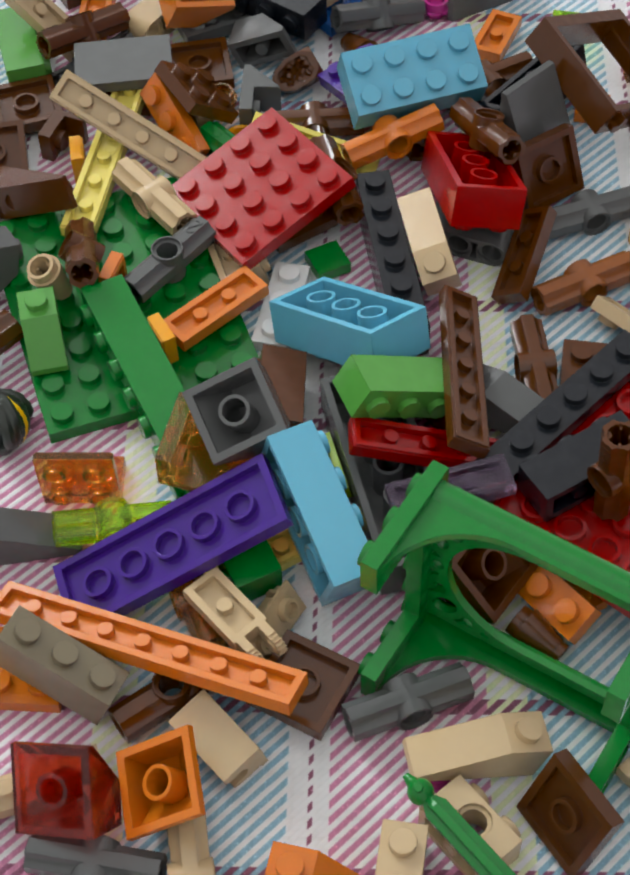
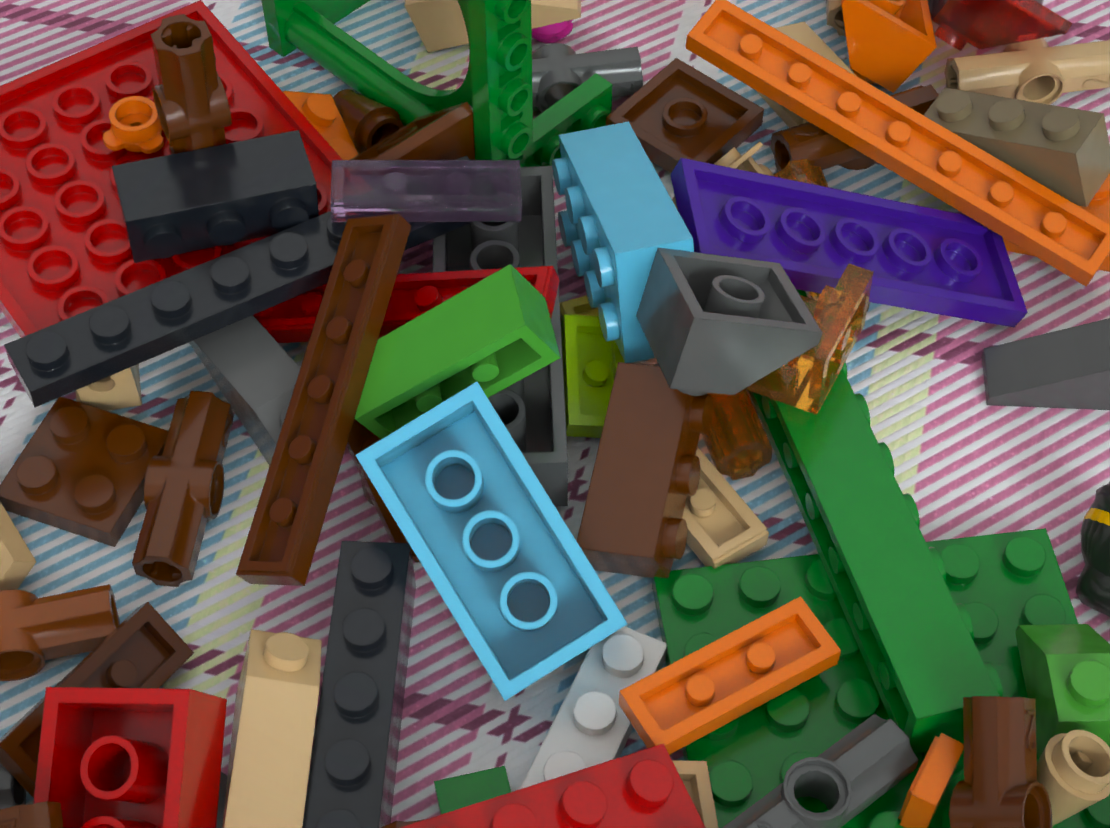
camera: 170 degrees left, 0 degrees up
(79, 476) = (989, 423): clear orange bracket -> none
(97, 523) = (939, 341): clear neon green piece -> none
(164, 336) = (840, 616): light orange tile -> none
(232, 614) = (764, 138): tan hinge -> none

